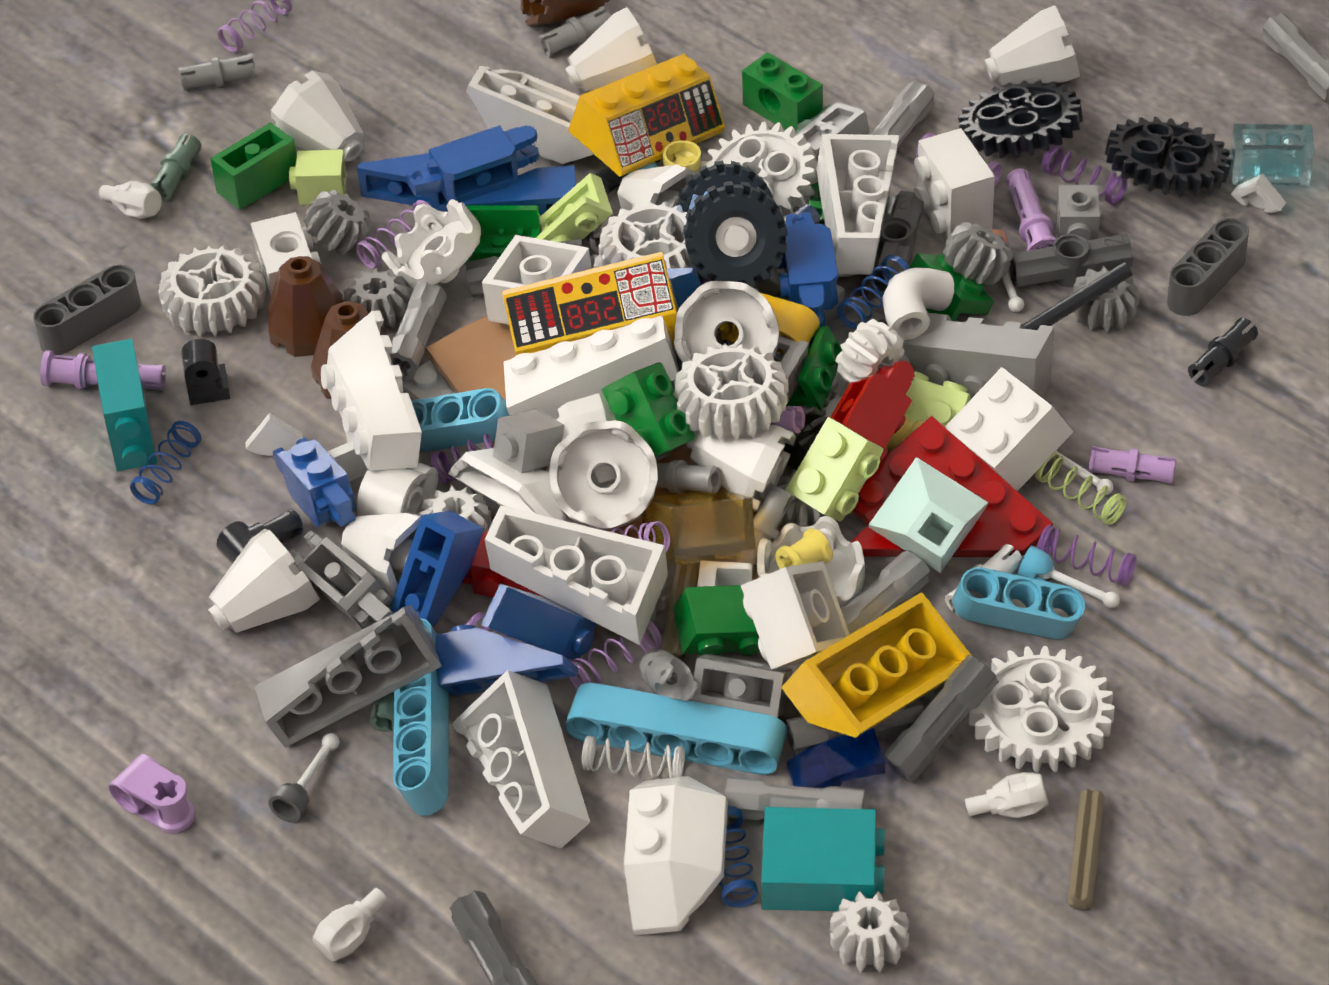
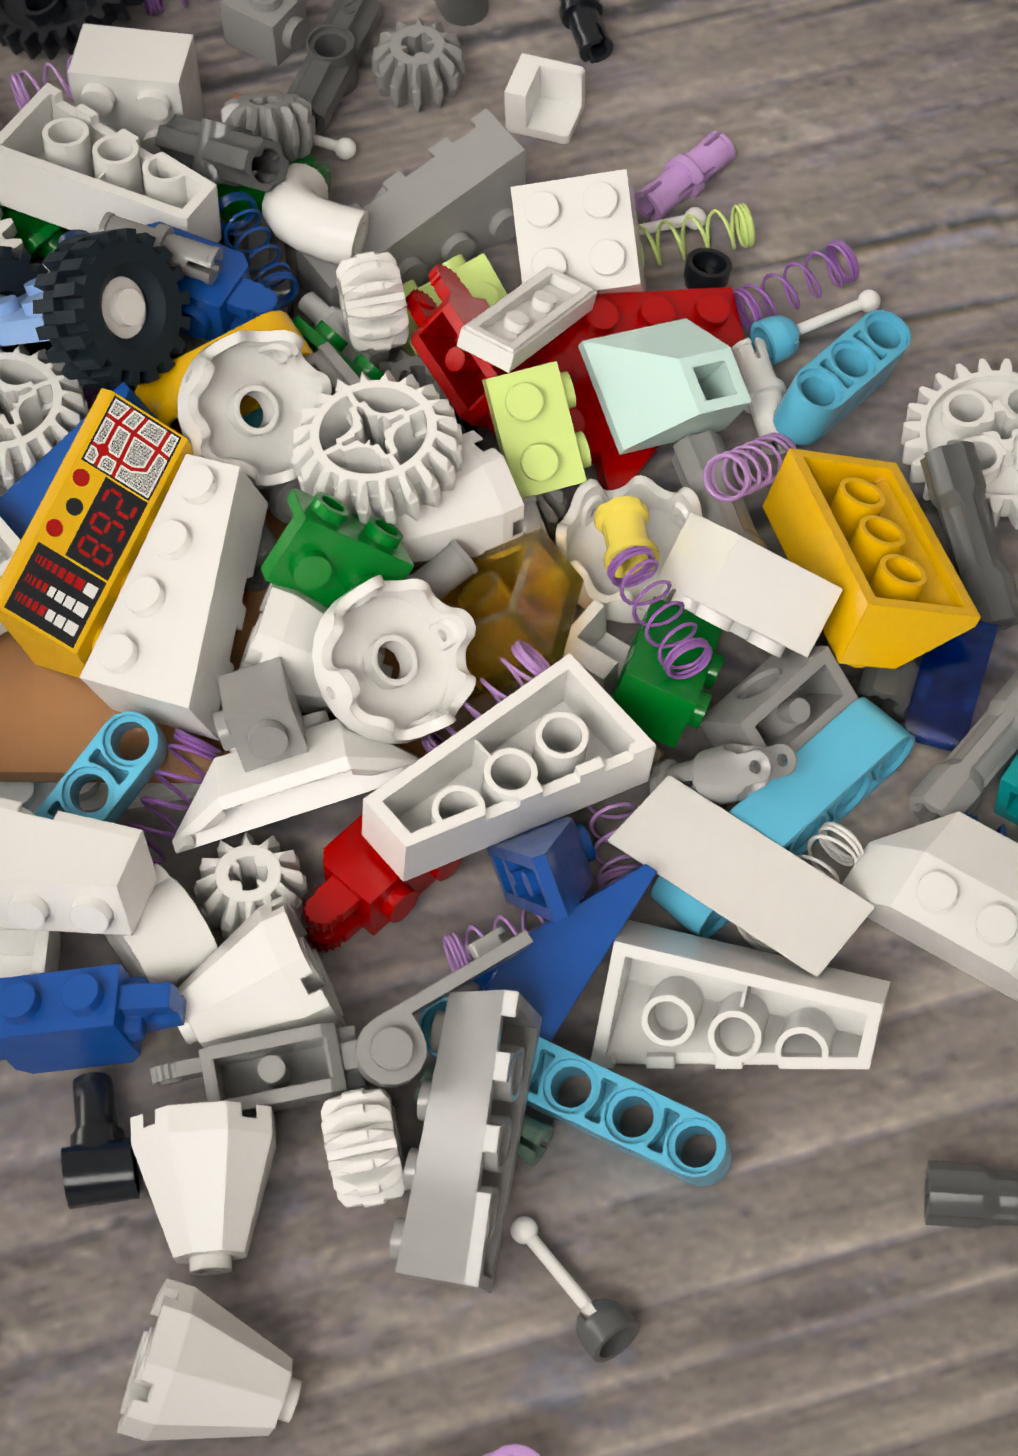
camera: 60 degrees left, 10 degrees up
(149, 637) = (204, 1374): none -> white cone
(318, 630) = (363, 1147): none -> white gear
(347, 926) = (876, 1356): white piece -> none
(370, 601) = (393, 1044): none -> light grey door
(437, 563) = (354, 935): blue slope -> none
(602, 714) = (742, 875): none -> white sticker
(723, 601) = (680, 646): none -> medium lavender piece
(801, 234) = (193, 257): none -> light grey pin
(869, 582) = (734, 455): none -> lavender piece
(902, 420) = (527, 319): none -> white tile
(924, 237) = (223, 152): none -> dark grey piece
(1035, 227) = (246, 65): lavender pin -> none
(1064, 500) = (707, 269): none -> black hinge
(1080, 297) = (420, 86): black bar -> none
(1130, 368) = (544, 98): none -> white panel

